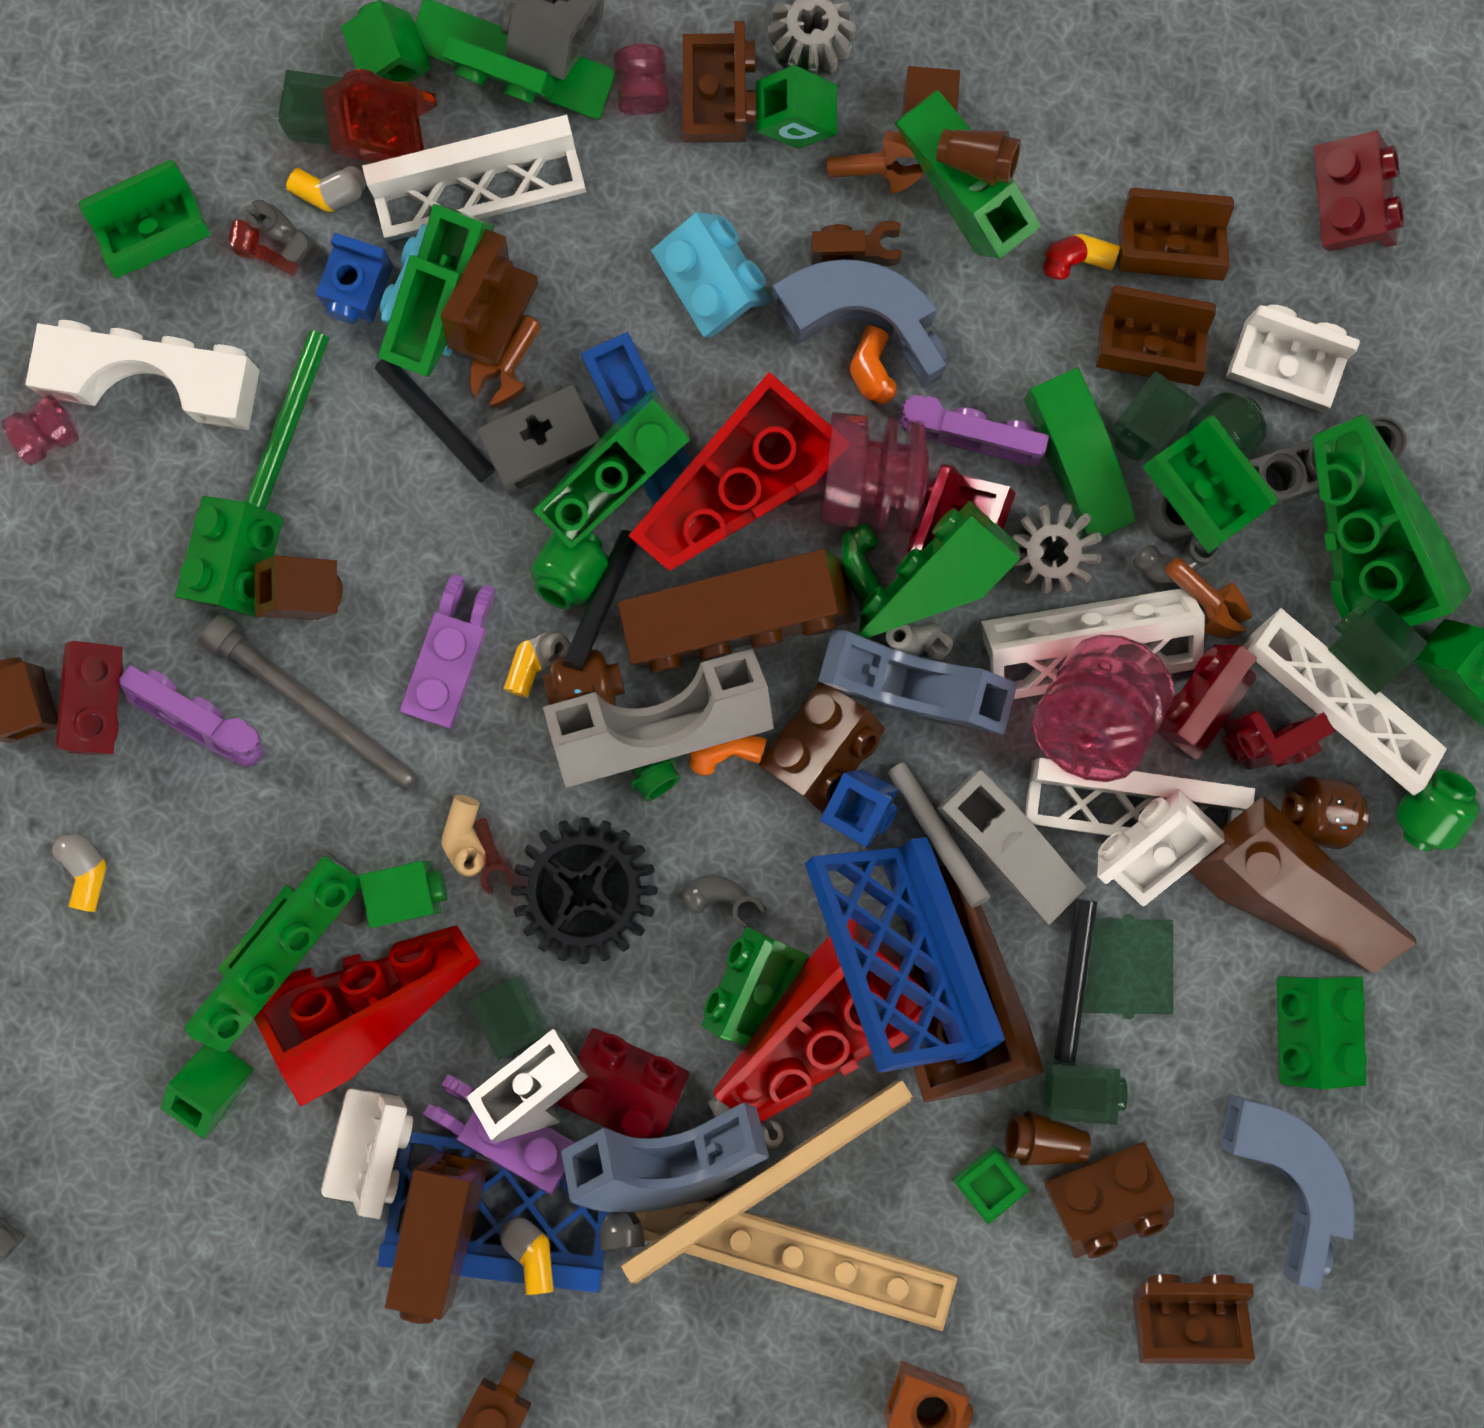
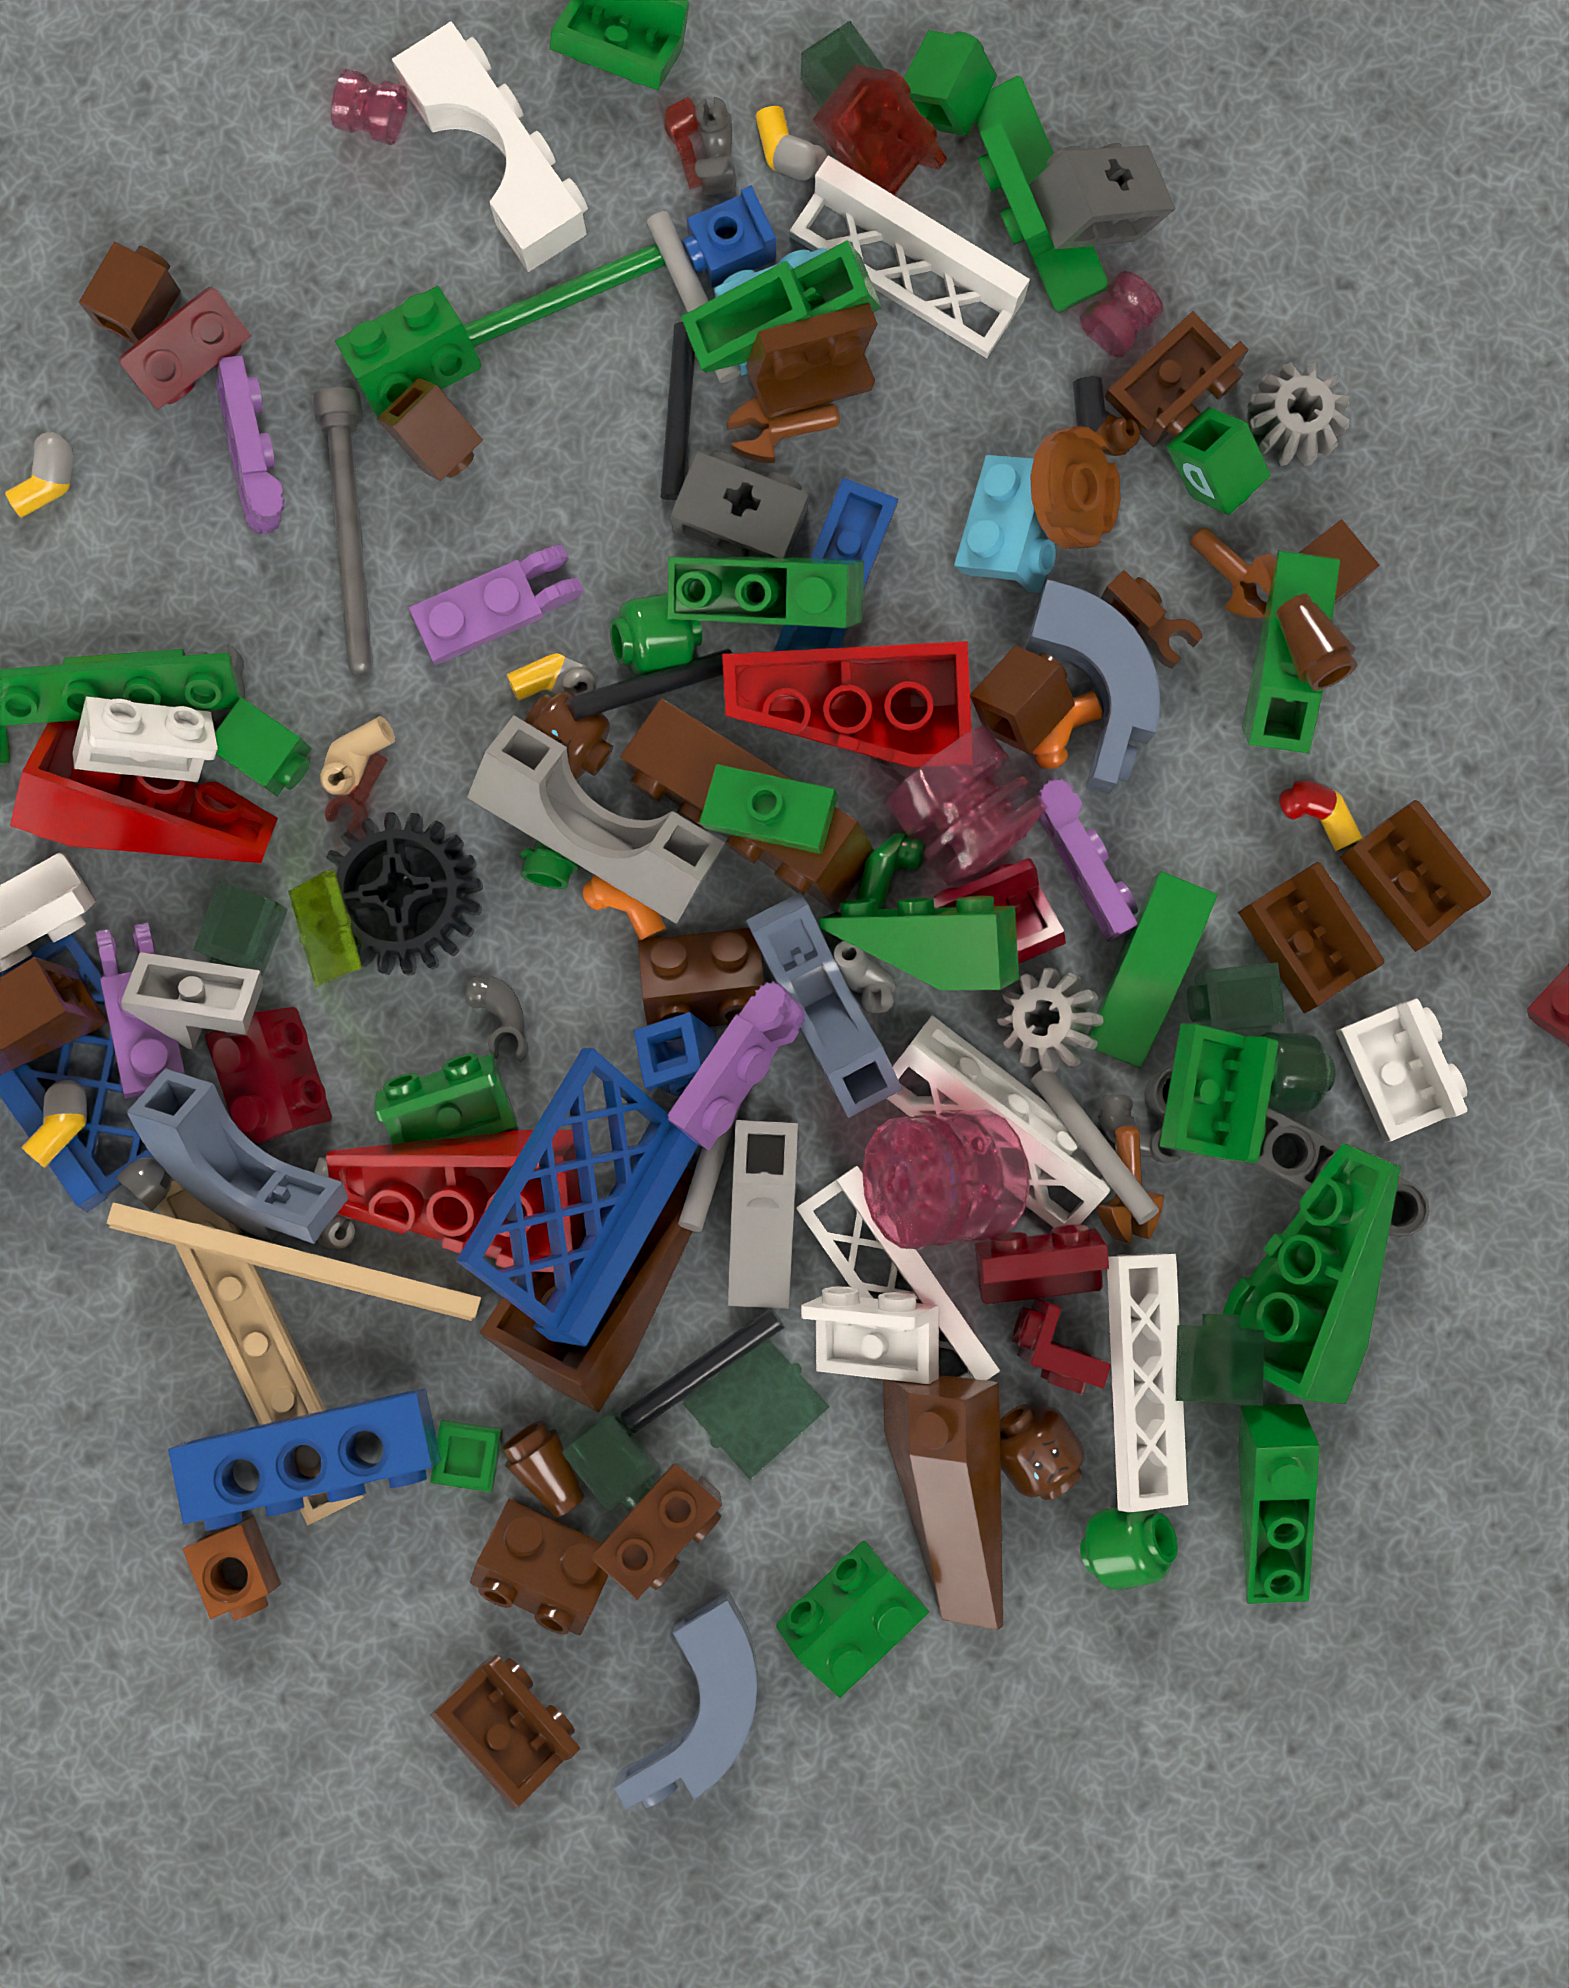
camera: 45 degrees right, 0 degrees up
(327, 964) = (143, 739): none -> white bracket
(346, 330) = (682, 273): none -> light grey bar
(564, 960) = (324, 928): none -> clear neon green piece
(699, 162) = (1090, 412): none -> arm
(728, 213) = (1074, 488): none -> dark orange tile
(762, 598) = (769, 808): none -> green plate
(834, 372) = (1023, 698): none -> reddish brown brick
(878, 1376) = (206, 1465): none -> blue brick
(906, 773) = (737, 1064): none -> medium lavender hinge
(1159, 1103) = (657, 1529): none -> reddish brown bracket
(1164, 595) = (1095, 1146): none -> light grey bar

